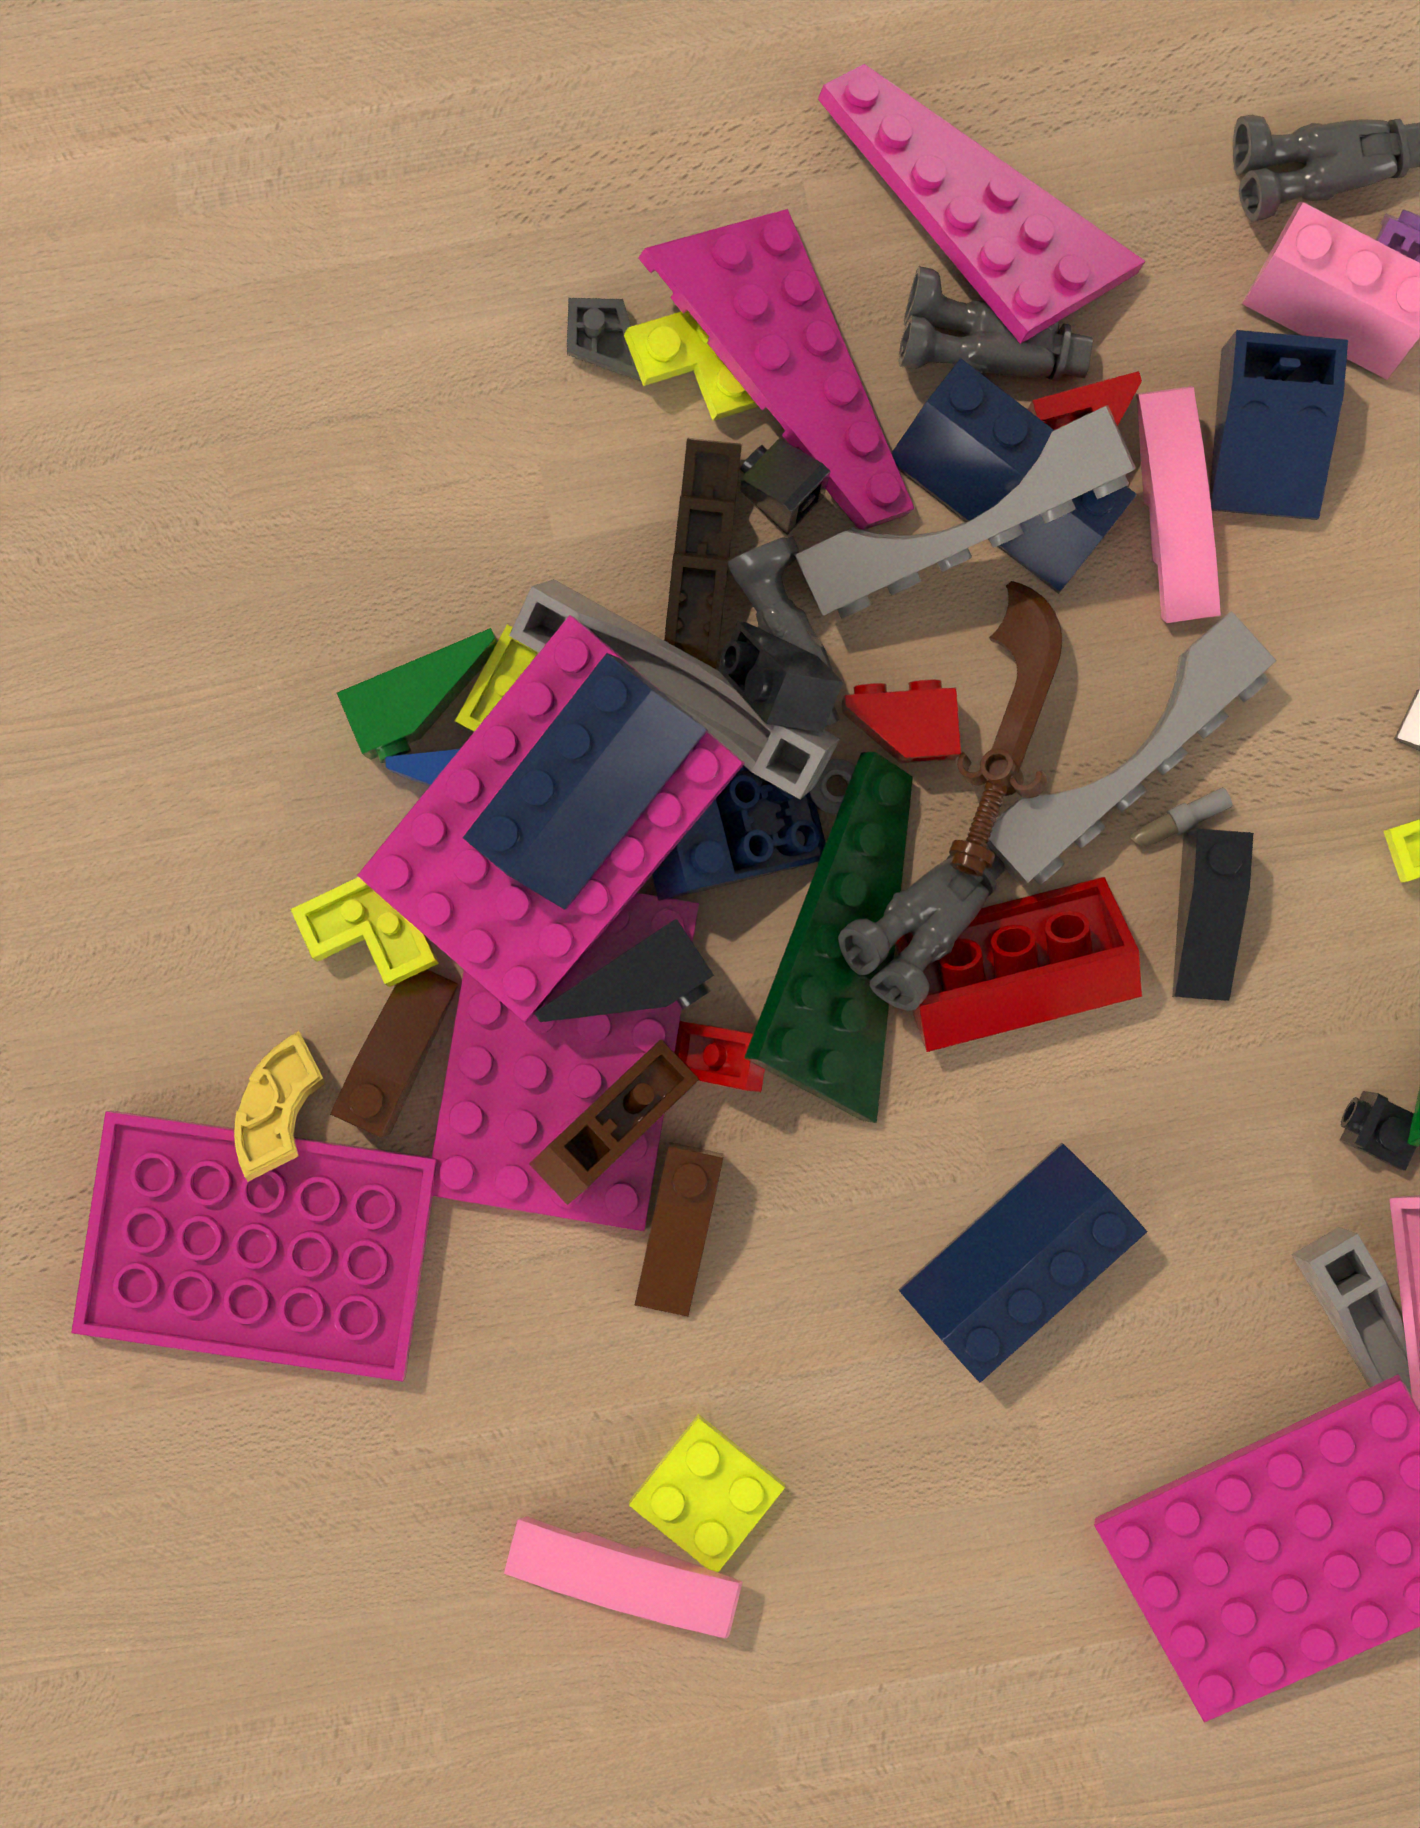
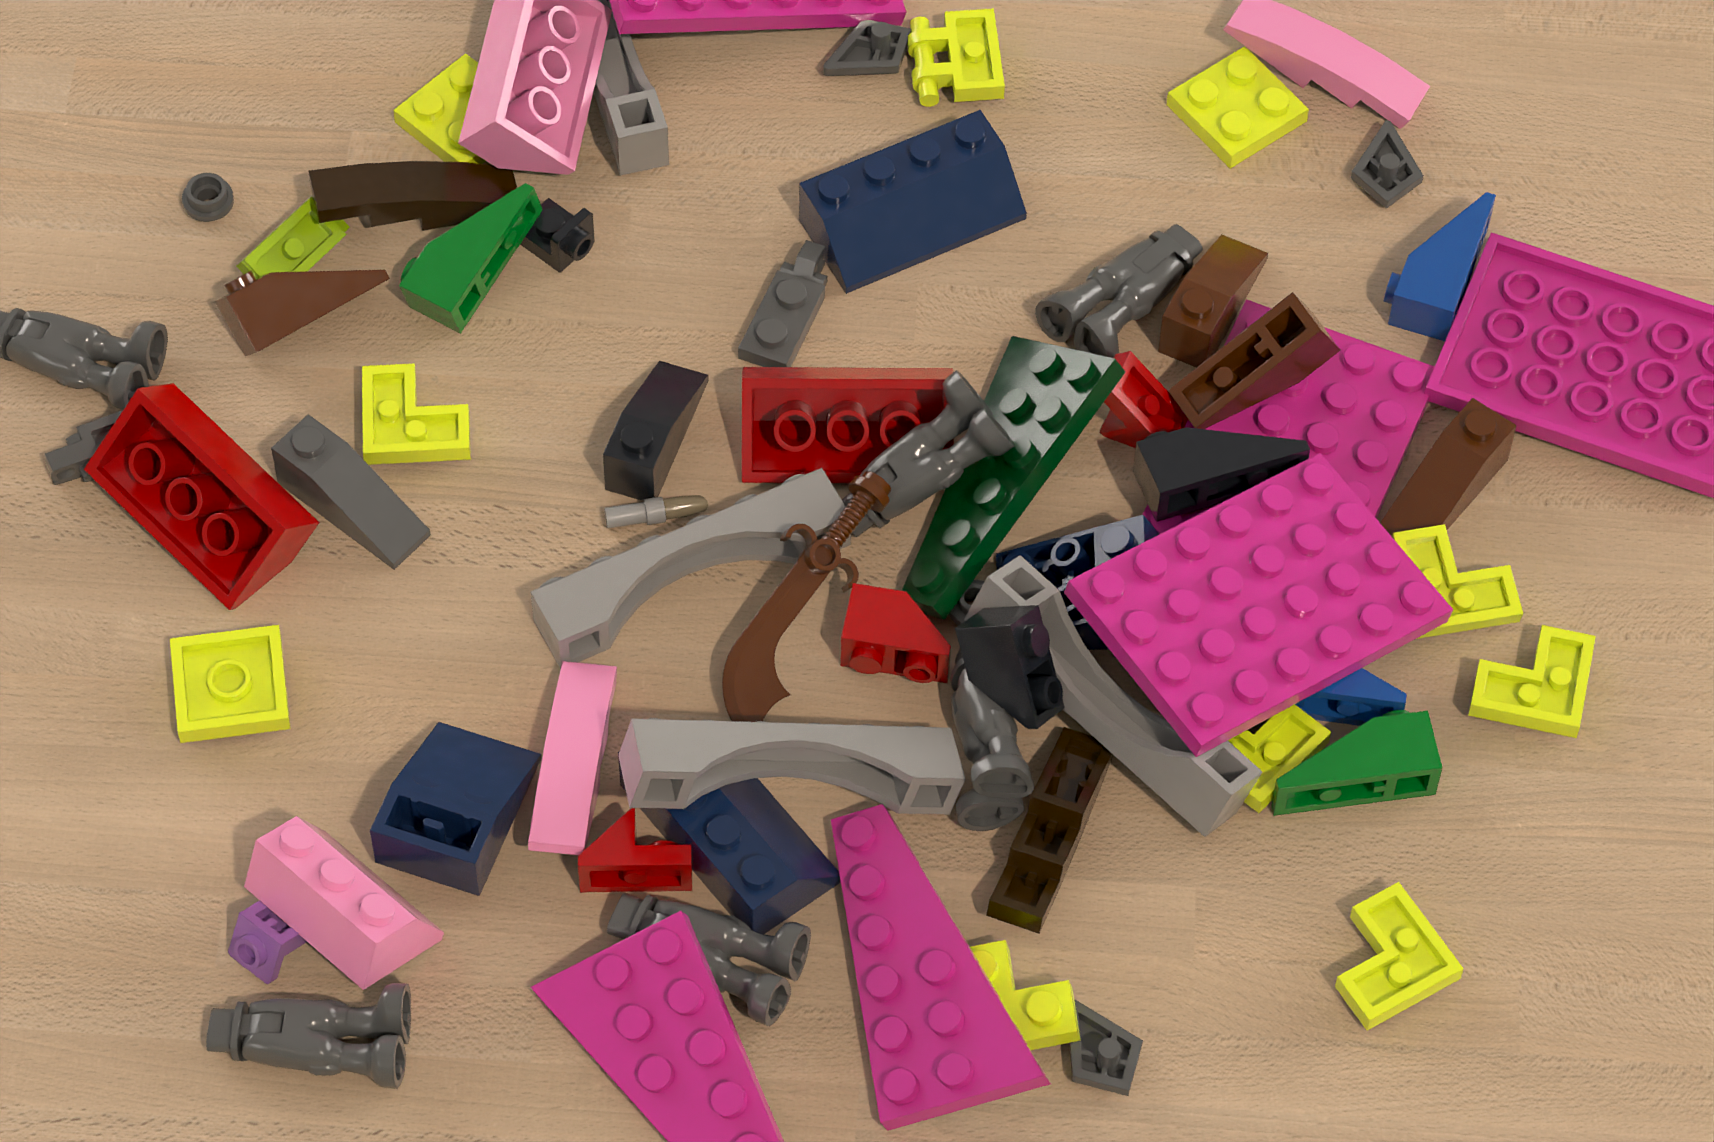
camera: 165 degrees left, 30 degrees down
(248, 827) = (1540, 698): none -> neon yellow plate
(271, 1105) = (1570, 462): light yellow tile -> none
(334, 493) = (1408, 963): none -> neon yellow plate
(448, 1305) = (1438, 273): none -> blue slope
(530, 1450) = (1387, 167): none -> dark grey piece
(585, 782) = (1223, 593): dark blue slope -> none
(764, 1215) = (1133, 281): none -> dark grey piece
(784, 483) = (956, 850): black slope -> none
(1007, 1483) = (972, 53): none -> neon yellow plate
(1116, 1095) = (786, 310): none -> dark grey hinge
(1119, 1465) = (869, 49): none -> dark grey piece

